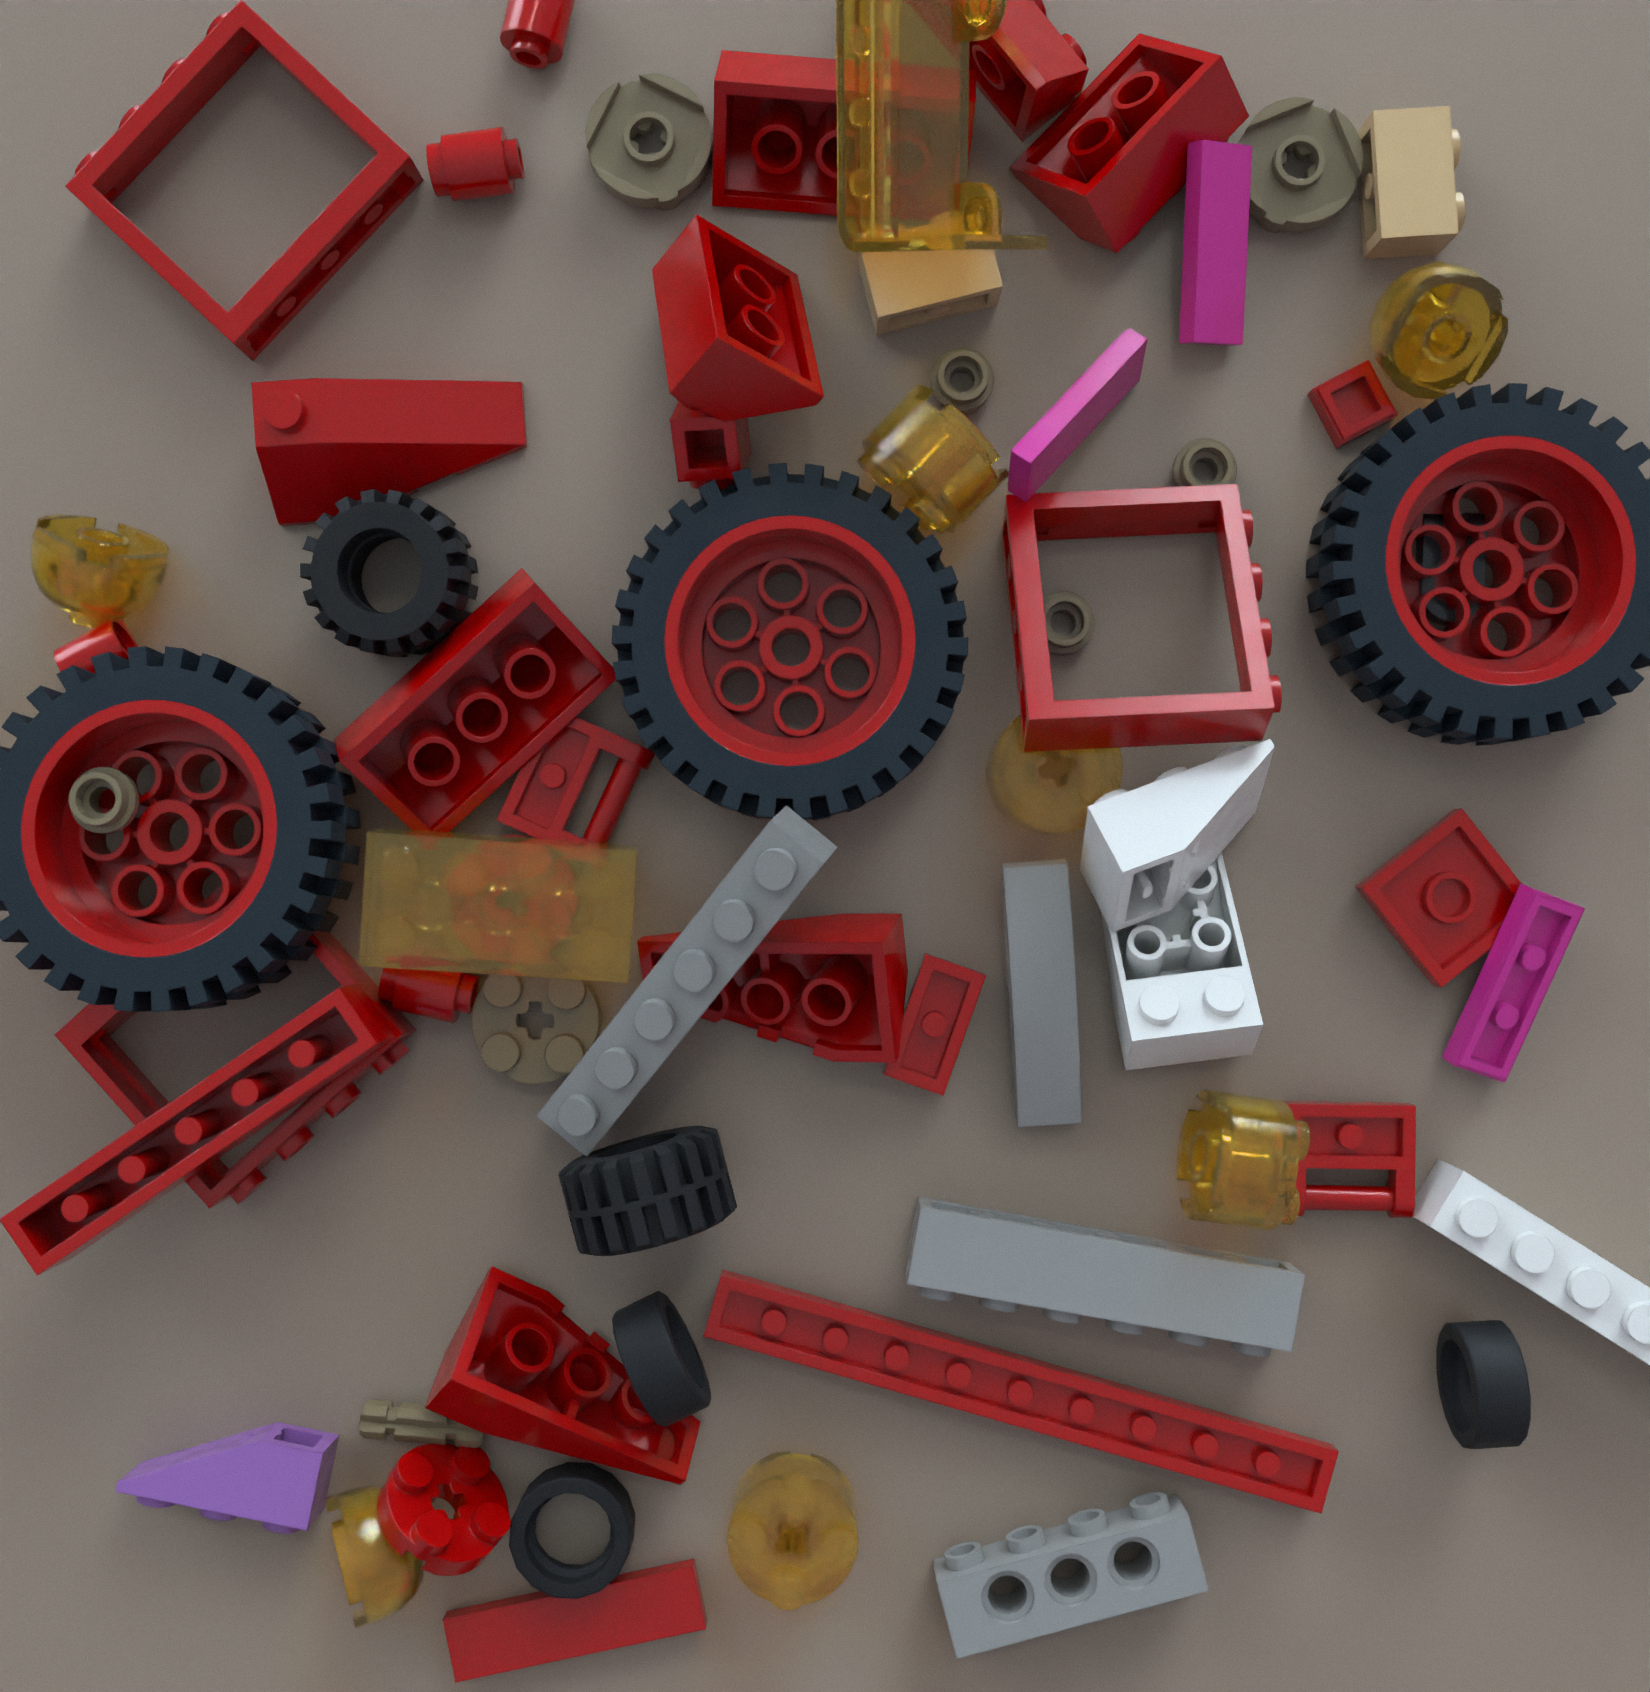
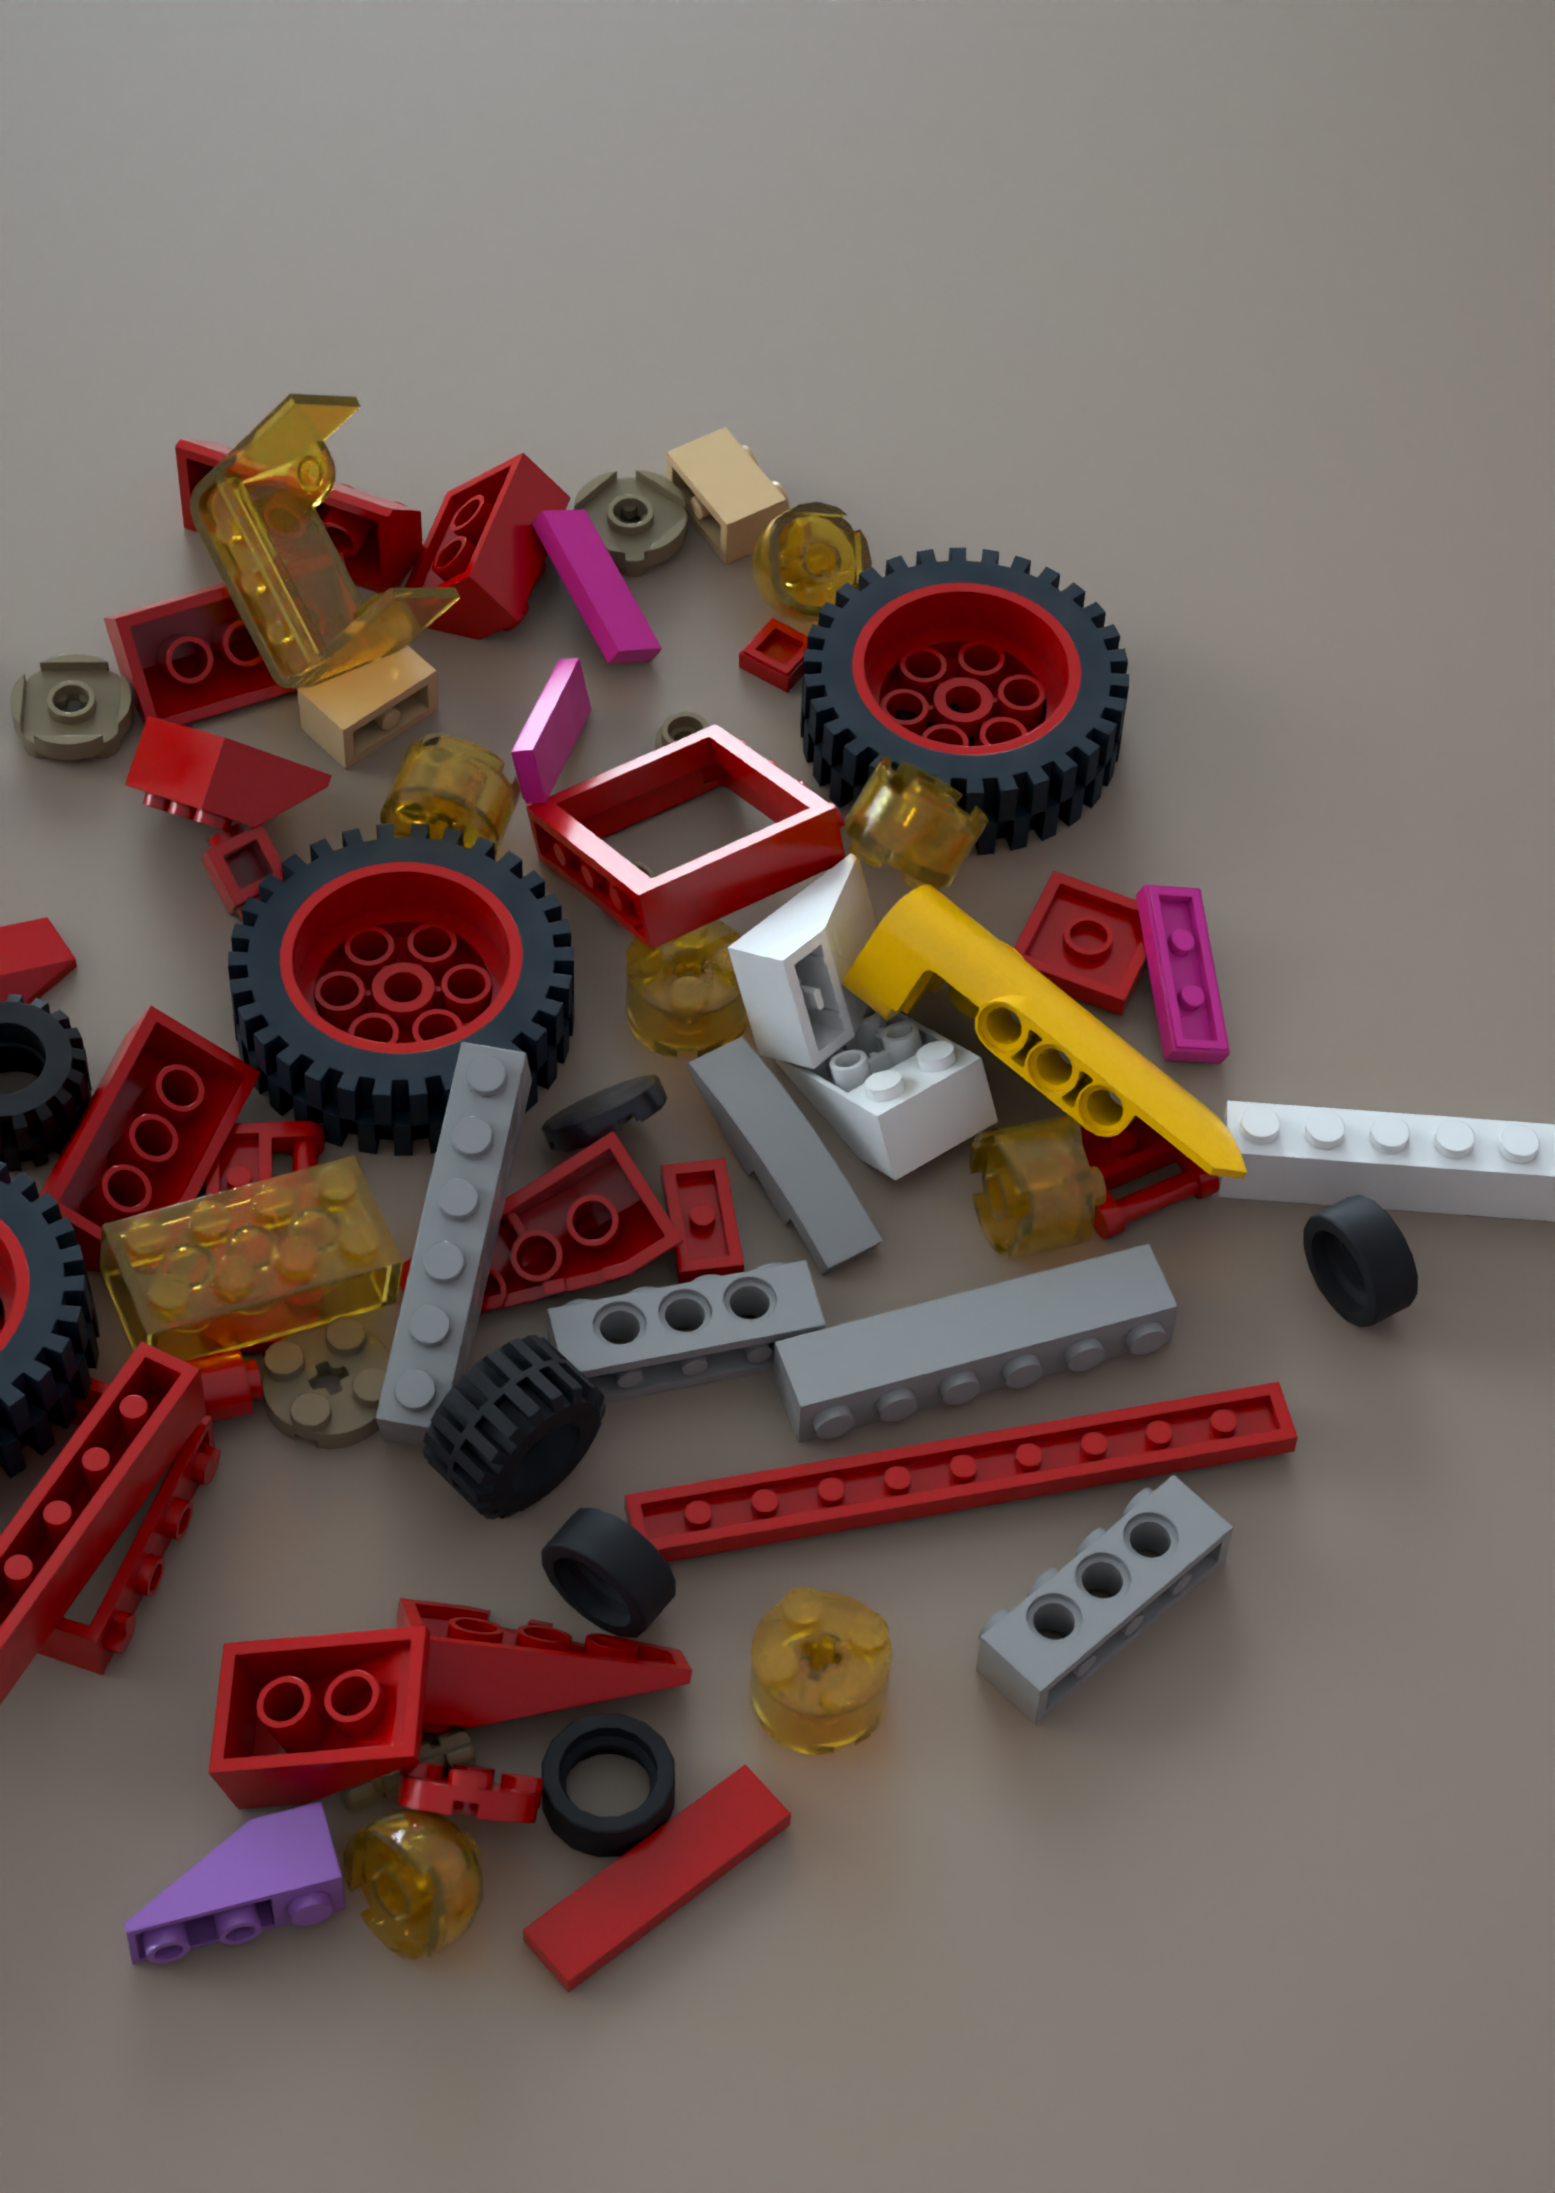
camera: 30 degrees left, 35 degrees down
(351, 1385) = (317, 1713): none -> red slope
(901, 881) = (604, 1112): none -> black tile
(947, 1179) = (668, 1359): none -> light grey brick
(1336, 1022) = (935, 941): none -> yellow panel
(1347, 739) = (912, 825): none -> clear yellow brick

